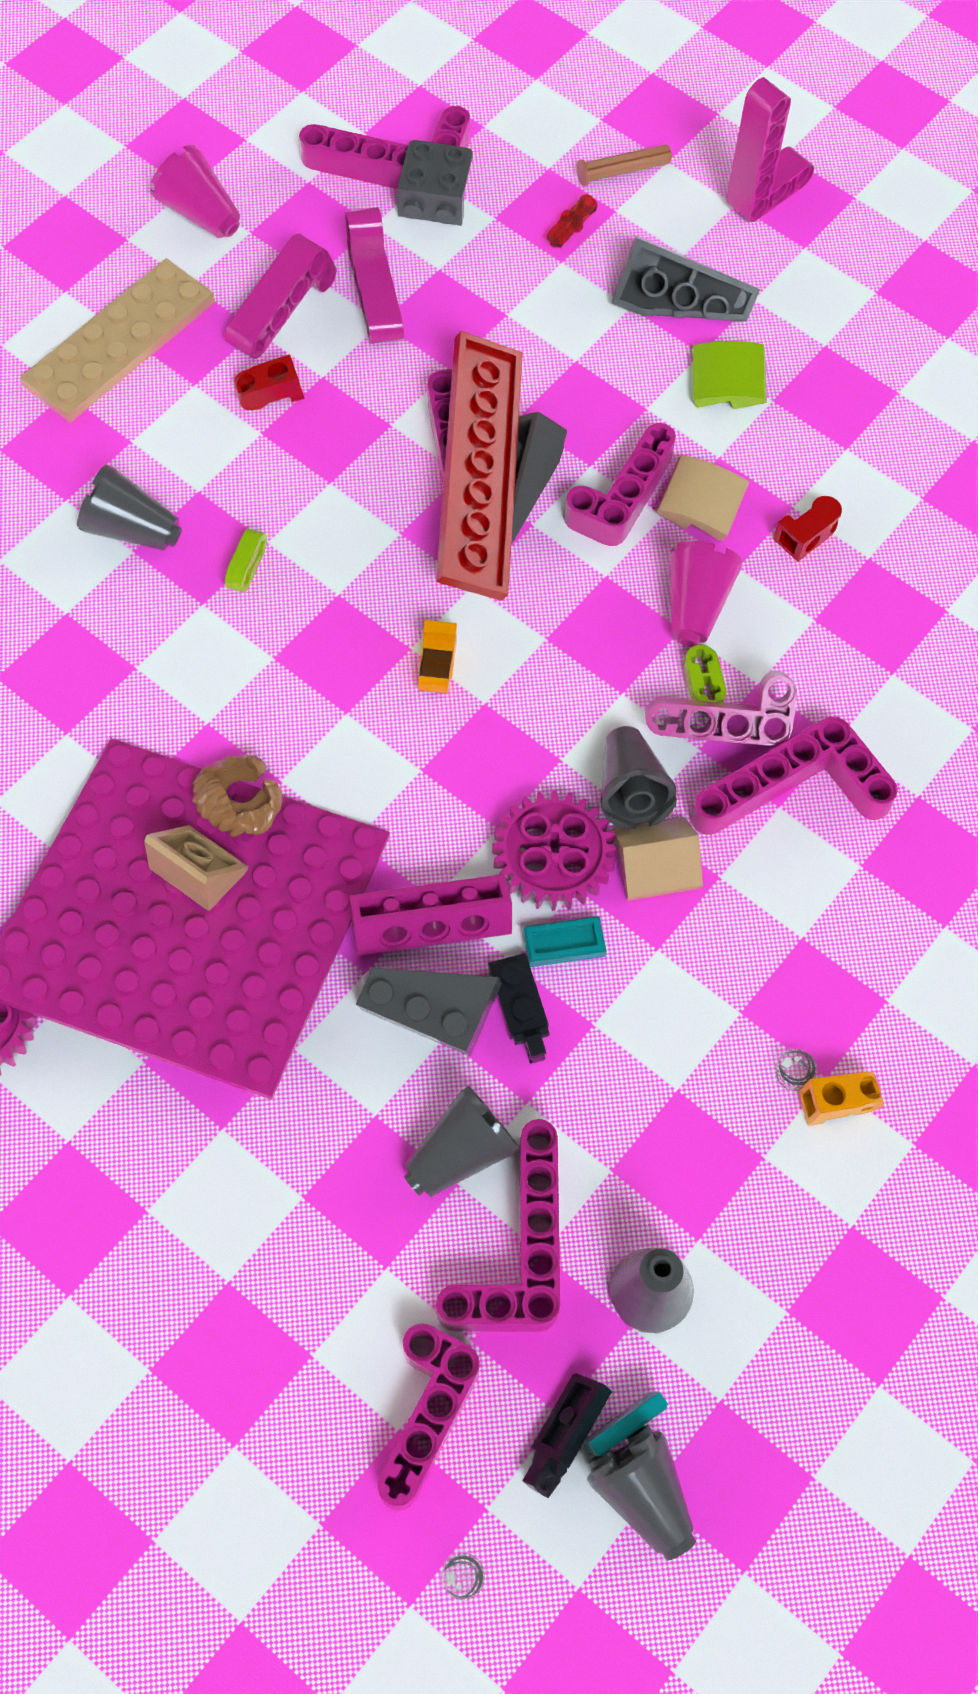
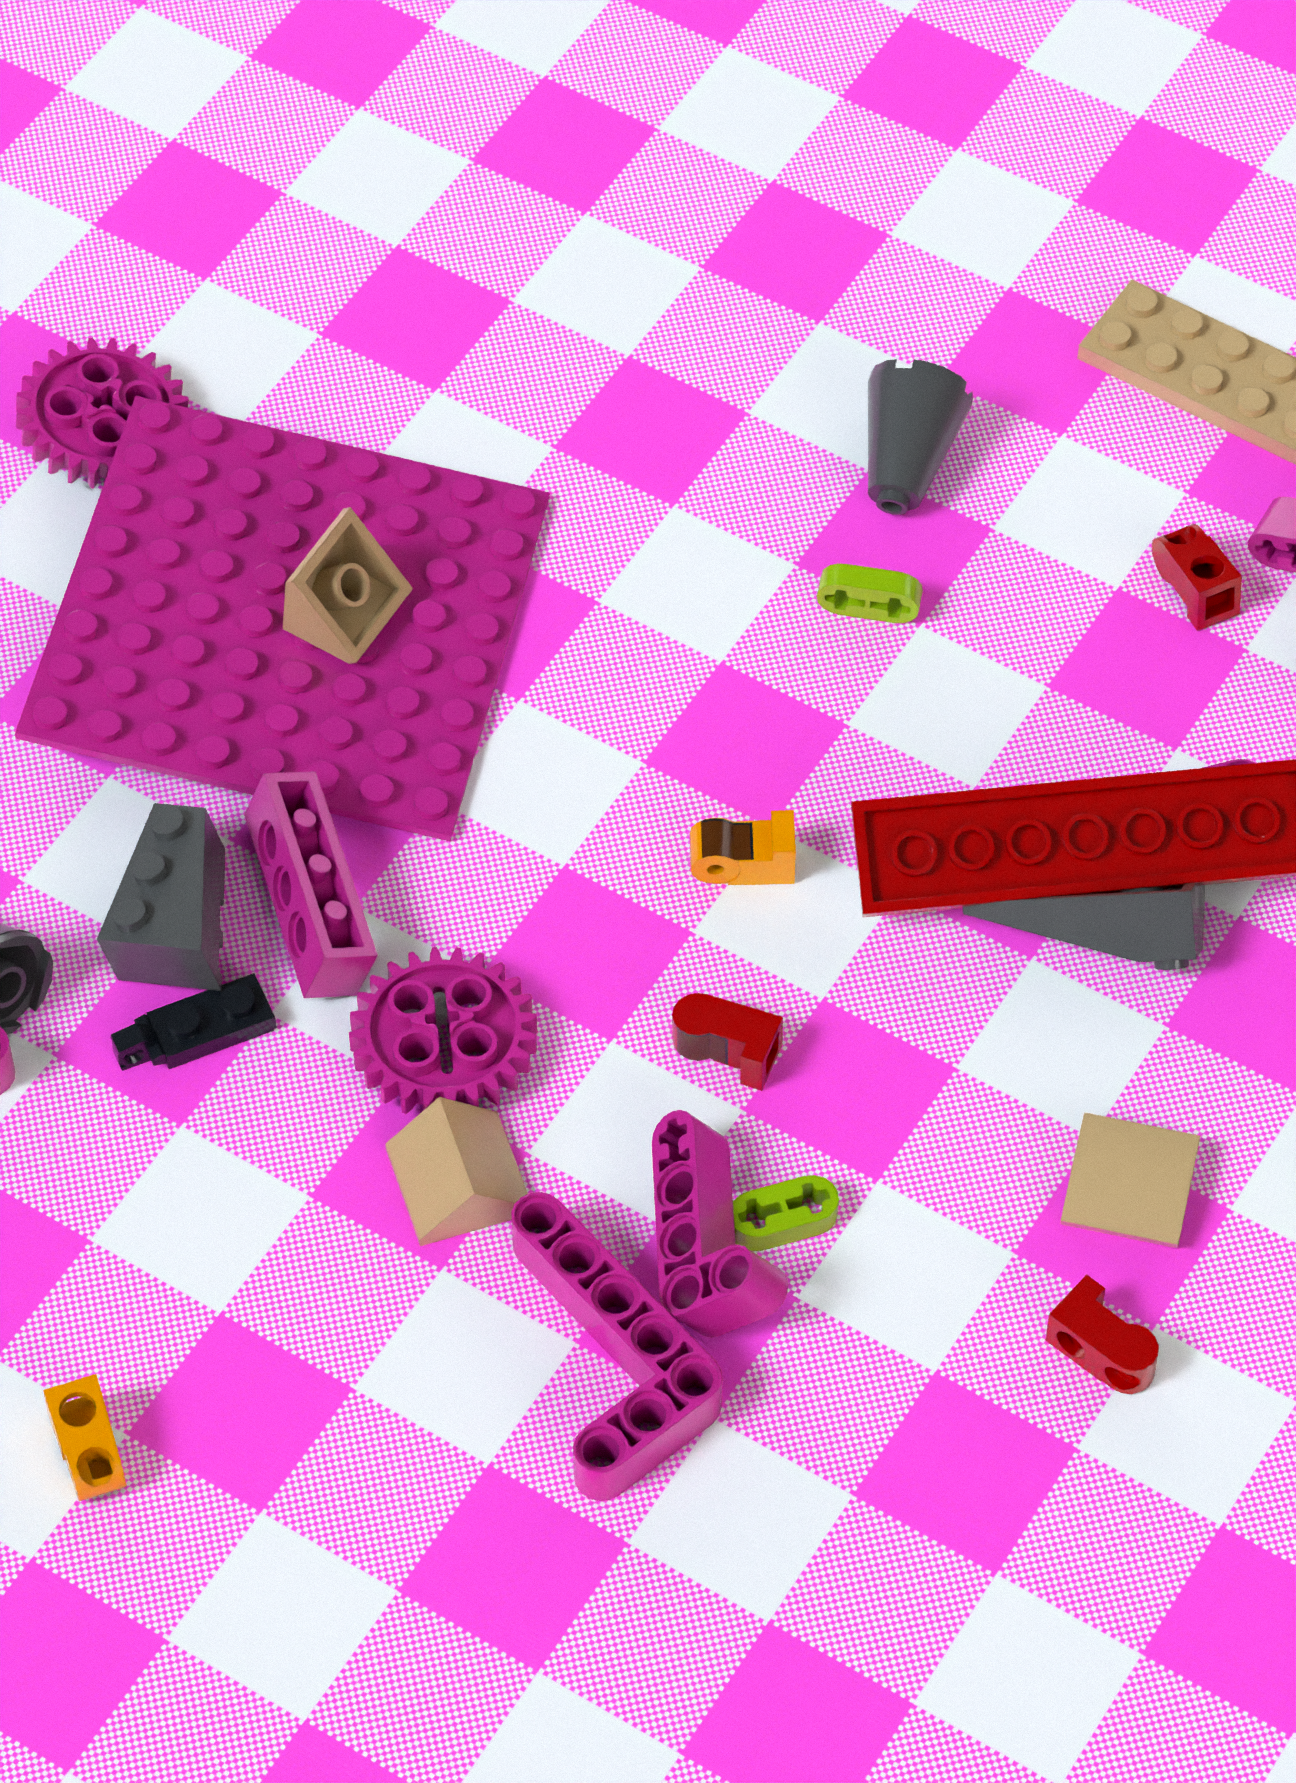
camera: 85 degrees right, 10 degrees down
(214, 804) = (453, 602): medium nougat piece -> none
(564, 941) = (304, 1070): teal tile -> none
(576, 685) = (728, 1034): none -> red leg
(631, 482) = (1208, 1089): dark pink beam -> none
(634, 781) = (569, 1107): dark grey cone -> none
(699, 588) = (929, 1174): dark pink cone -> none
(795, 1069) = (130, 1384): clear tile -> none

